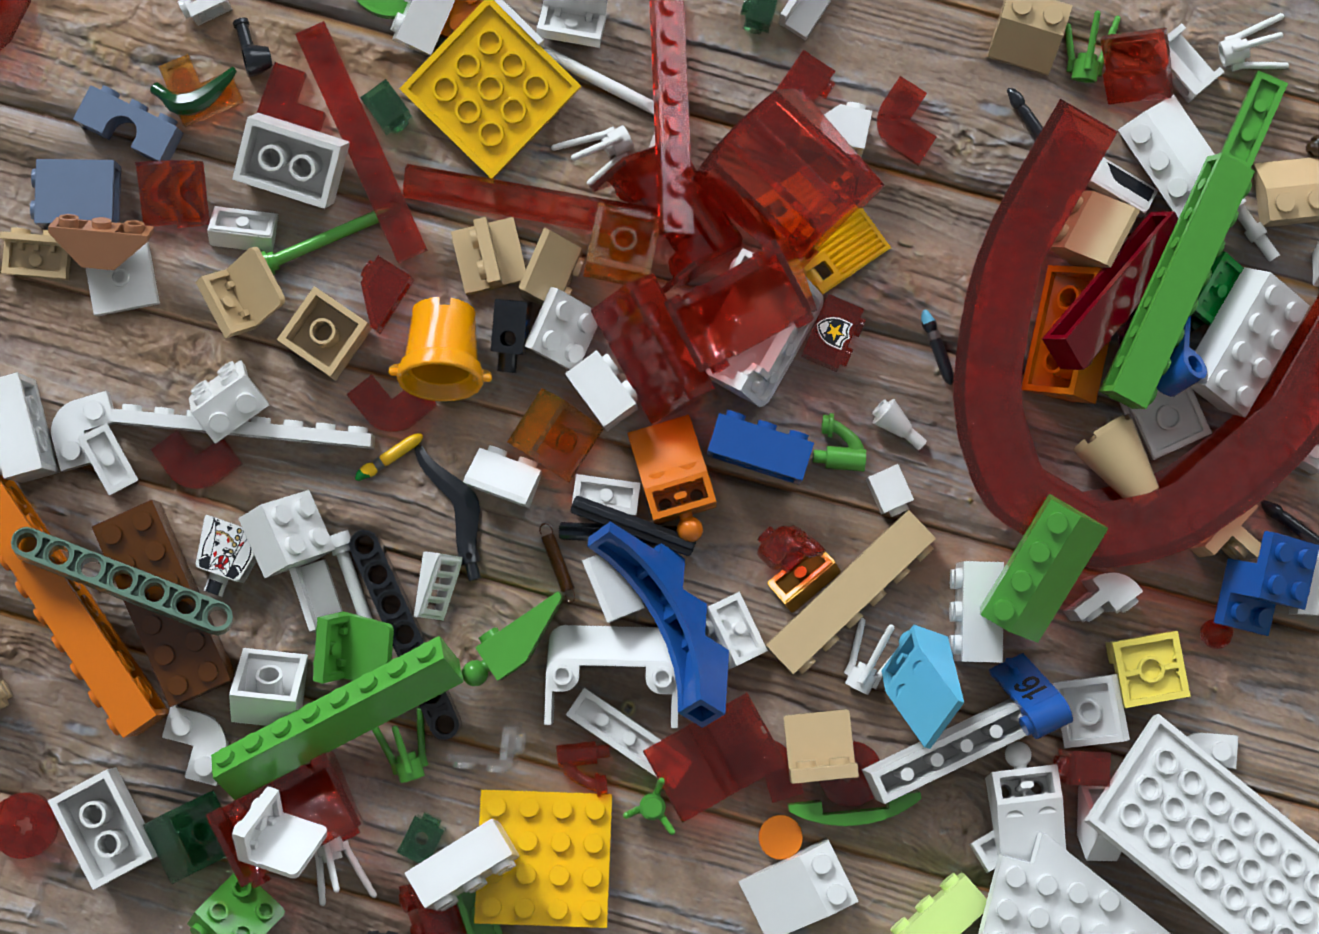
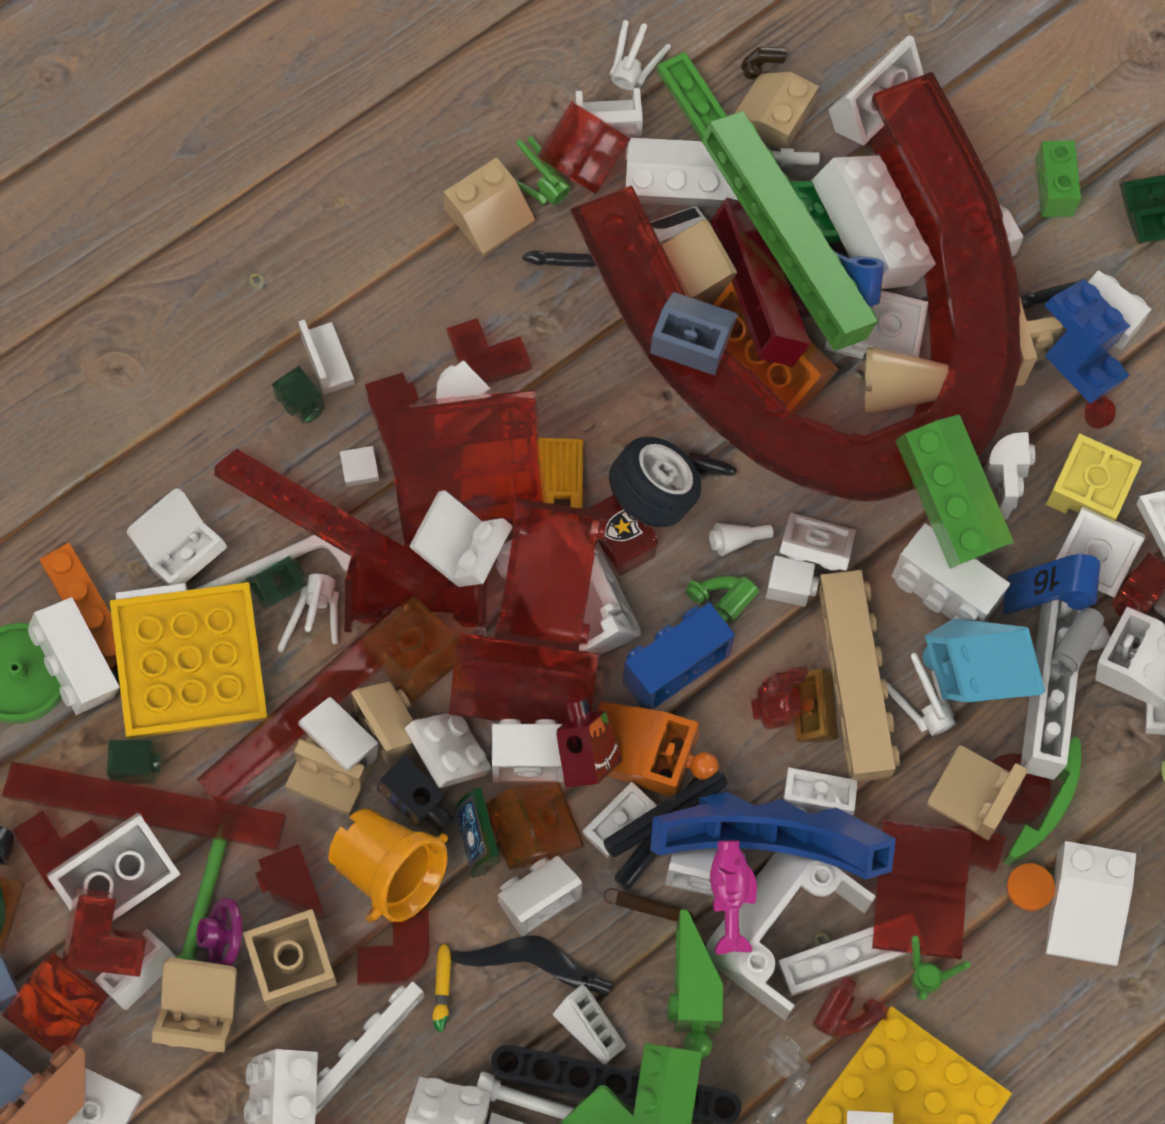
camera: 60 degrees left, 15 degrees down
(227, 189) = (93, 943): none -> clear red brick
(306, 268) = (216, 932): none -> magenta piece
(510, 242) = (340, 735): none -> white panel
(515, 398) = (476, 832): none -> slope
(591, 112) = (291, 581): none -> clear green brick
(601, 616) = (732, 886): none -> dark pink animal
(632, 432) = (586, 745): none -> dark red torso
(719, 218) = (459, 541): none -> white bracket
(739, 95) = (359, 466): none -> white tile
(889, 329) = (654, 481): none -> black wheel
(935, 488) = (817, 542): none -> white plate
(992, 746) = (1077, 641): none -> light grey piece
(1022, 271) = (692, 333): none -> sand blue slope

